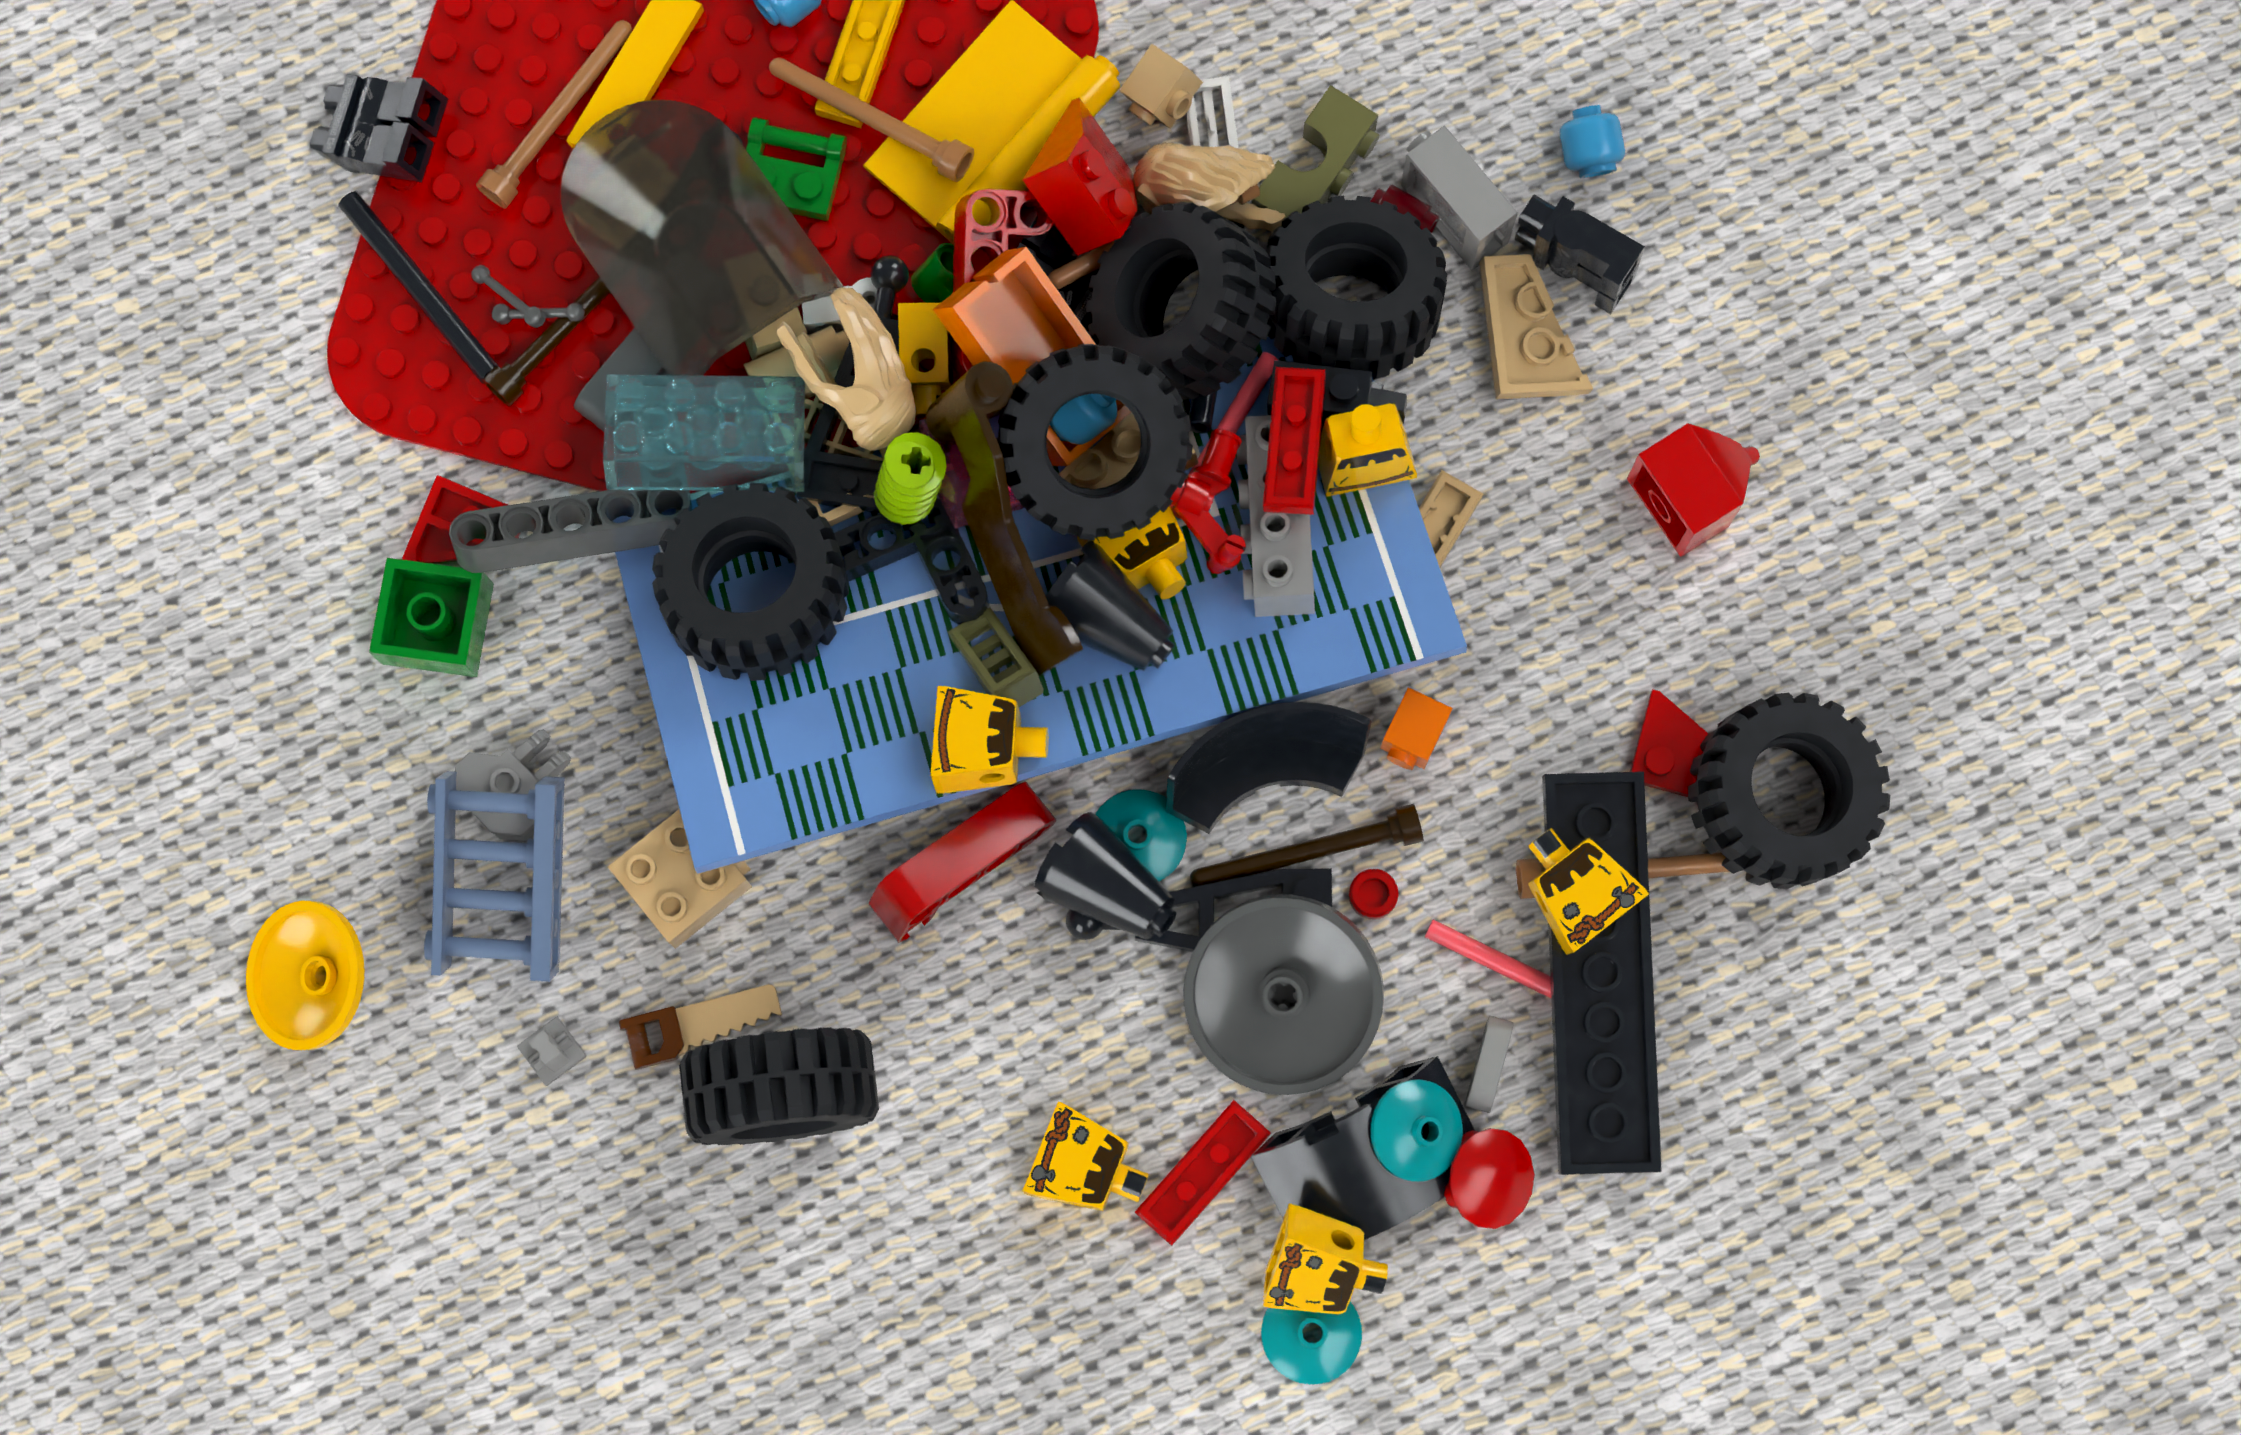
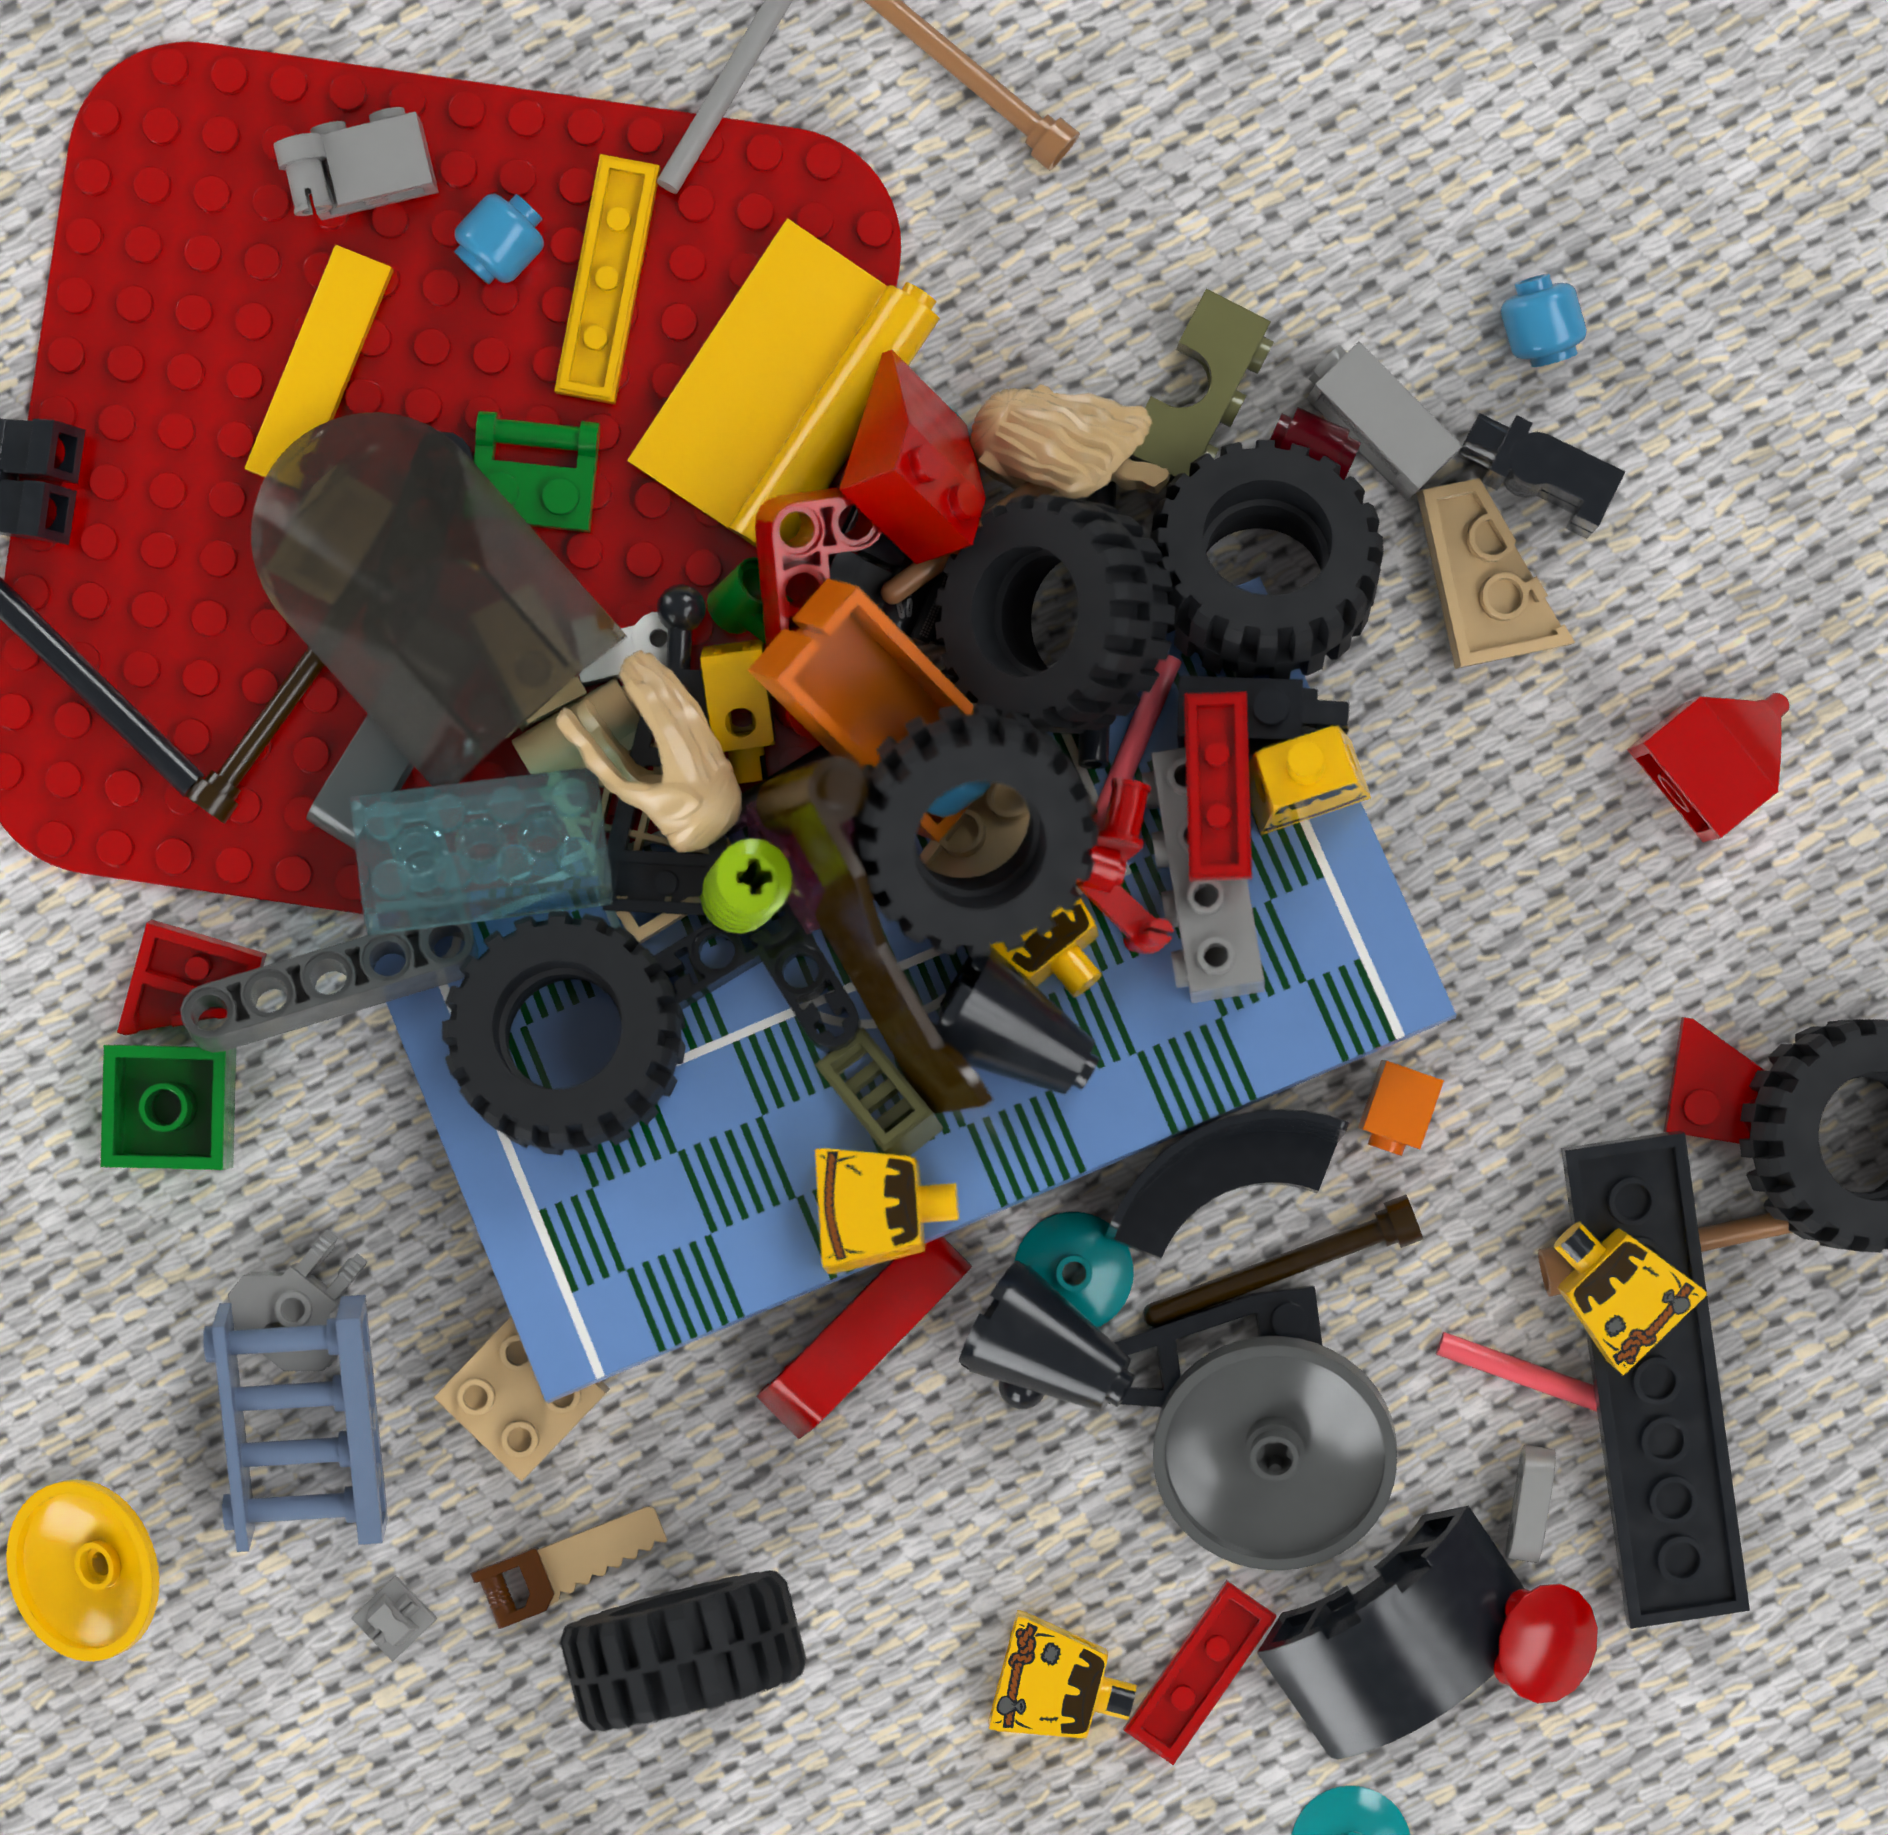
camera: 10 degrees left, 10 degrees up
(502, 181) = (172, 530): medium nougat piece -> none
(504, 314) = (198, 702): dark grey hinge -> none
(532, 315) = (237, 707): dark grey hinge -> none
(949, 157) = (733, 441): medium nougat piece -> none
(1160, 88) = (990, 313): tan brick -> none
(1207, 86) = (1046, 298): white tile -> none
(1318, 1264) = (1352, 1774): yellow torso -> none
(1373, 894) = (1368, 1309): red tile -> none
(1398, 1127) = (1434, 1599): teal dish -> none
(1447, 512) = (1408, 825): tan plate -> none

